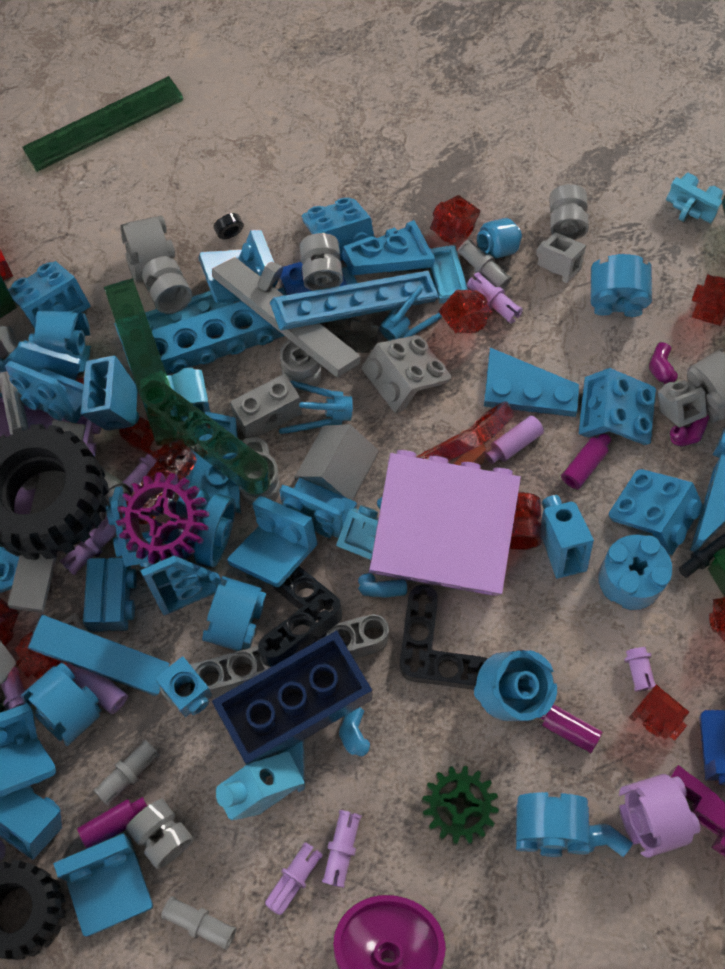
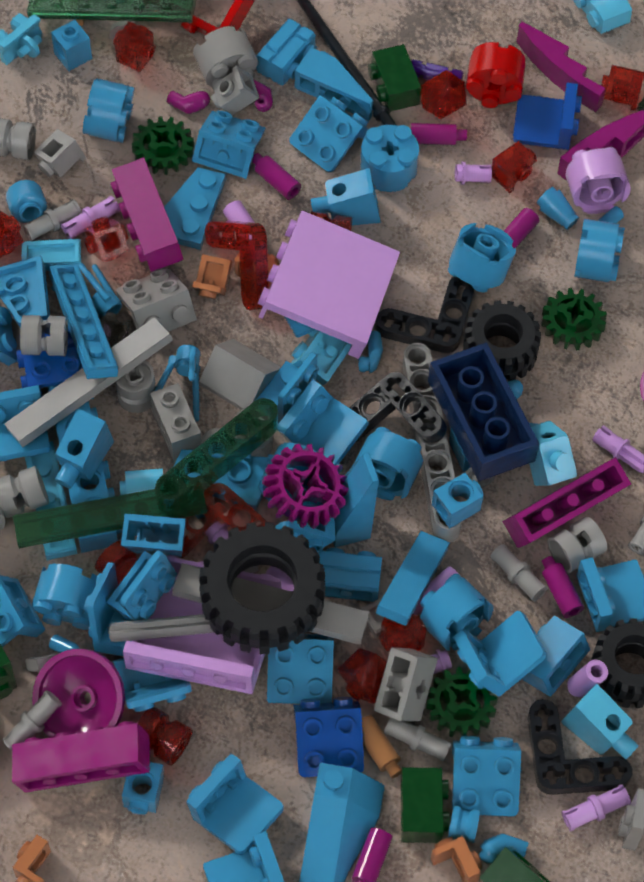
camera: 85 degrees left, 5 degrees down
(193, 800) = (566, 502): none -> magenta brick
(204, 319) = (82, 448): none -> dark azure torso
(269, 276) = (45, 383): light grey tile -> none
(341, 849) = (600, 411): lavender pin -> none
(418, 694) = (511, 323): none -> black tyre
(443, 417) = (212, 276): none -> nougat bracket
(502, 342) = (147, 215): none -> magenta brick
(584, 337) = (163, 144): none -> dark green gear
(613, 773) = (557, 208): none -> dark azure cone
(685, 622) = (438, 133): none -> magenta cylinder
(698, 243) = (71, 45): none -> dark azure brick

